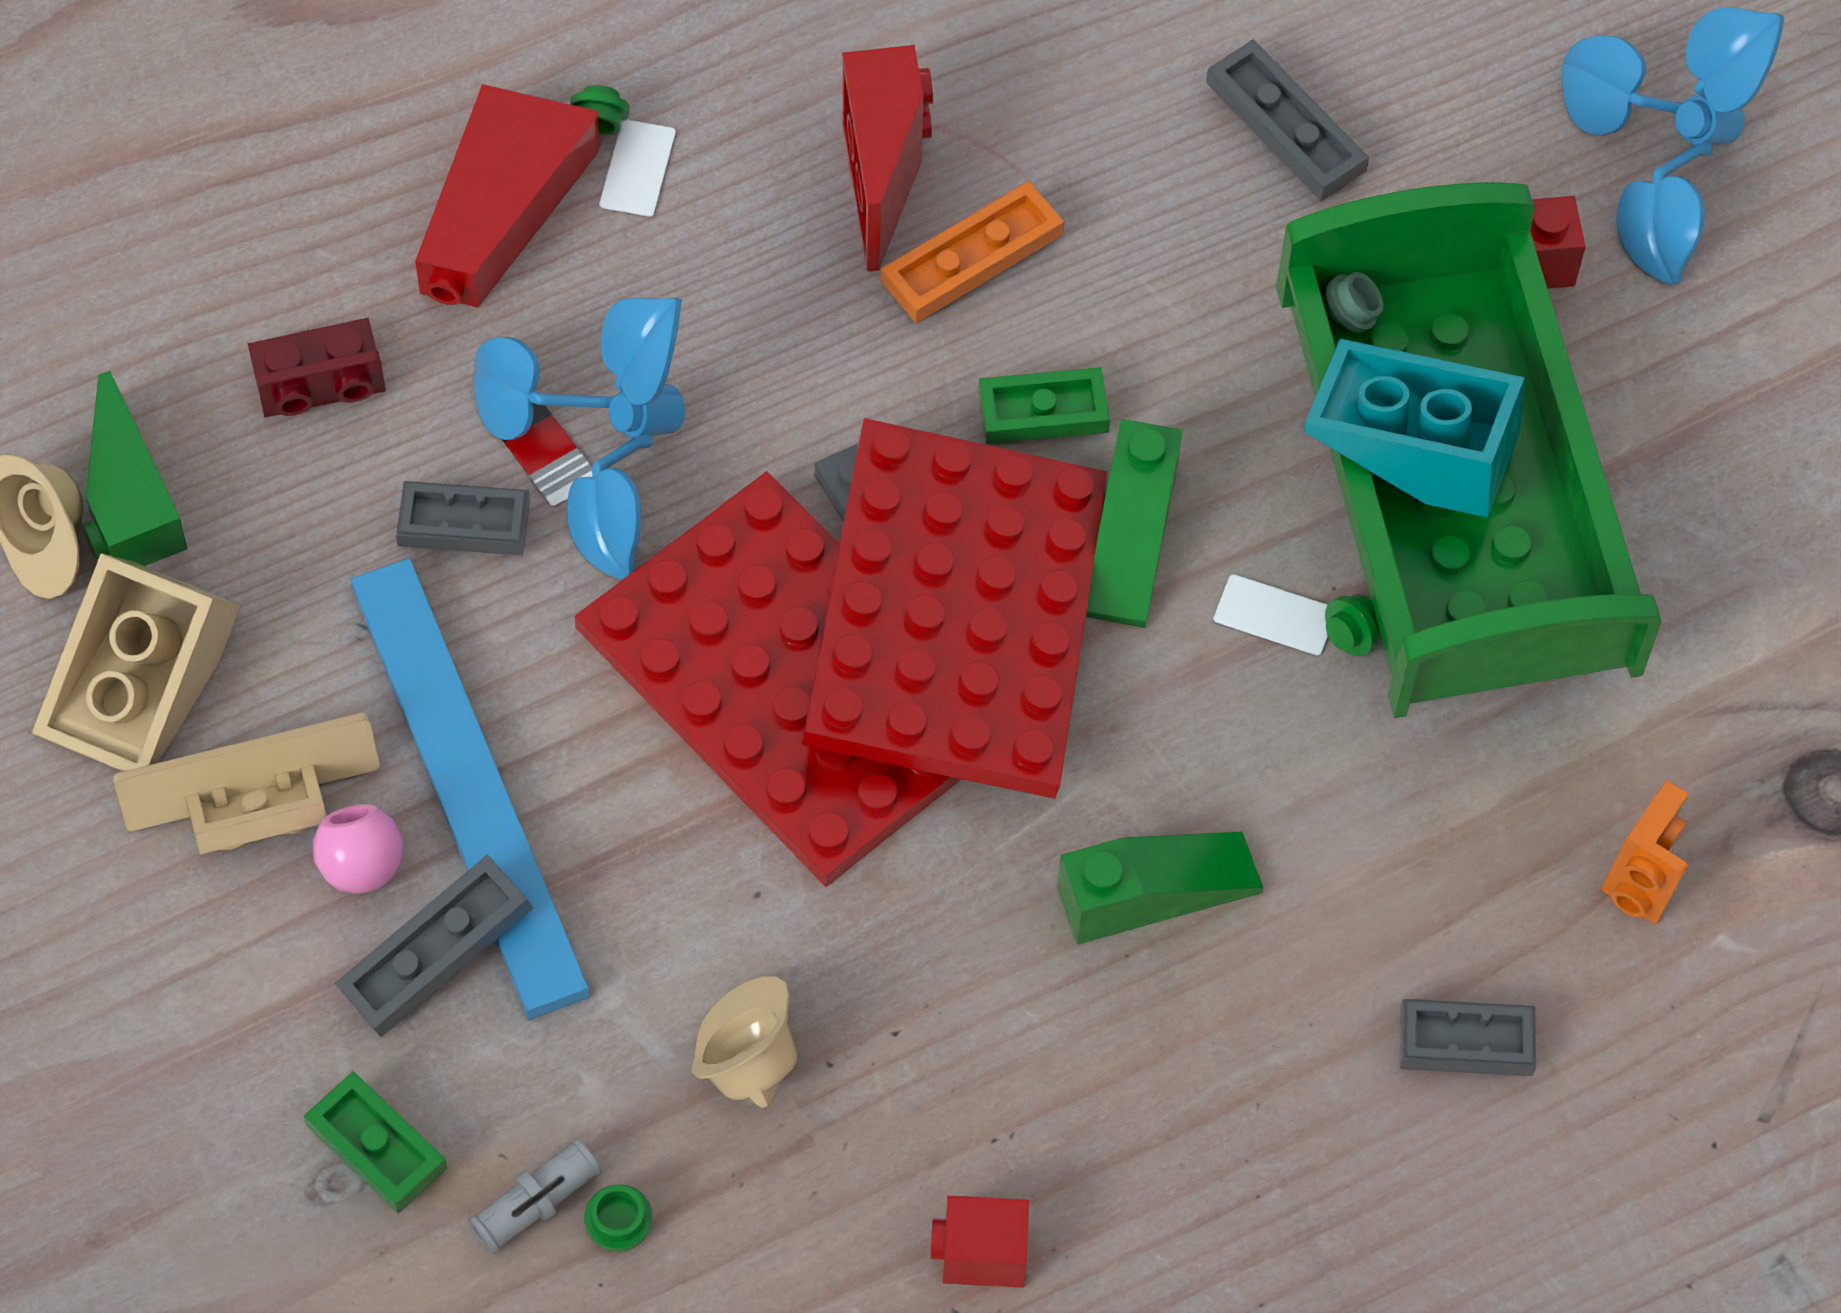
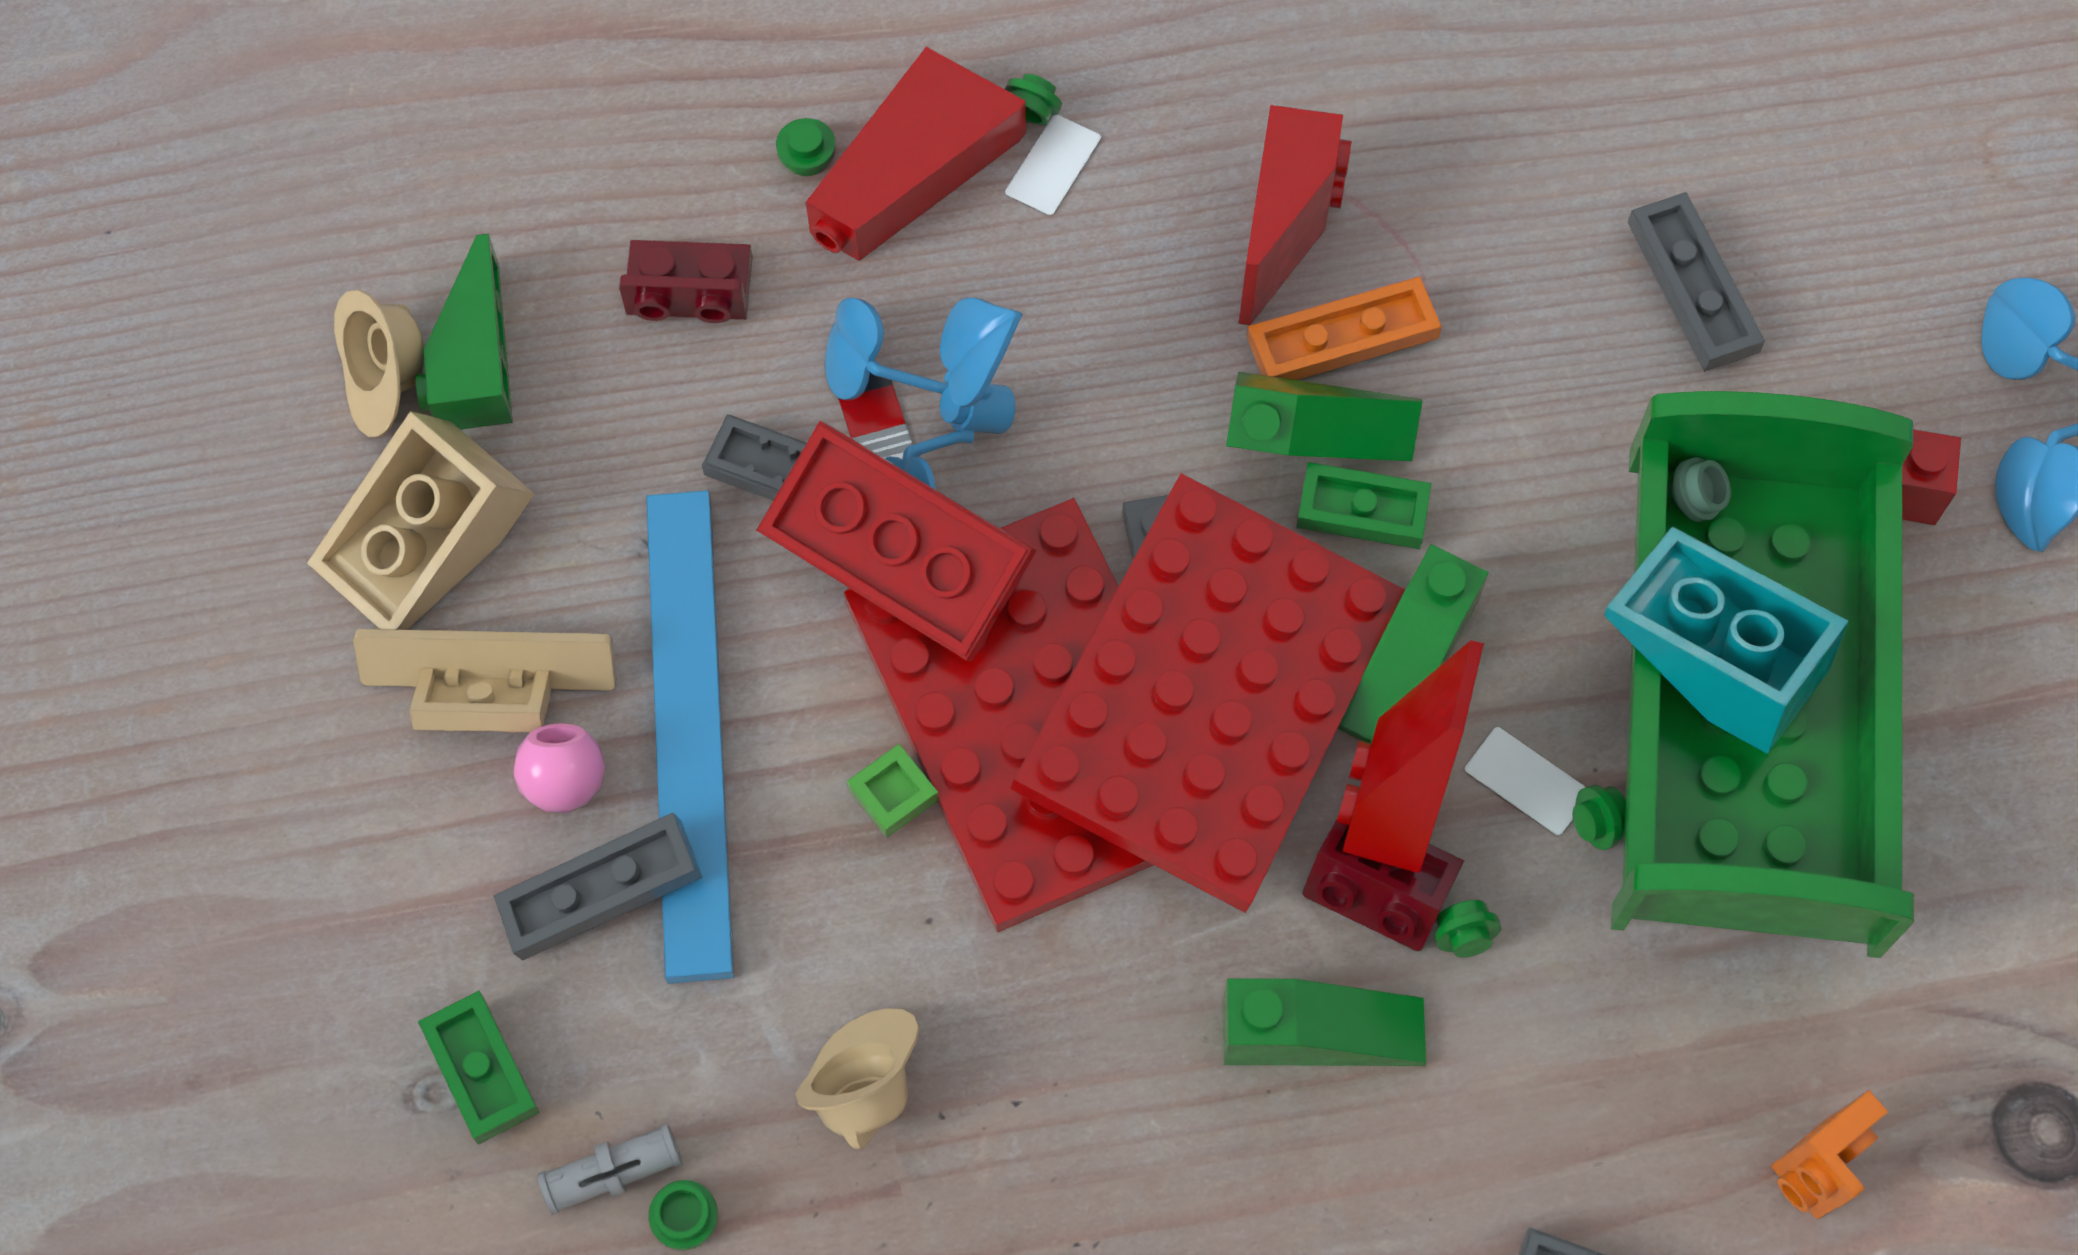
camera: 20 degrees right, 5 degrees up
(389, 211) = (806, 146): none -> green plate
(615, 549) = (896, 541): none -> red tile
(685, 783) = (892, 790): none -> bright green plate
(978, 336) = (1321, 420): none -> green slope
(1166, 618) = (1409, 766): none -> red slope
(1170, 735) = (1381, 895): none -> dark red bracket
(1262, 757) = (1466, 928): none -> green plate

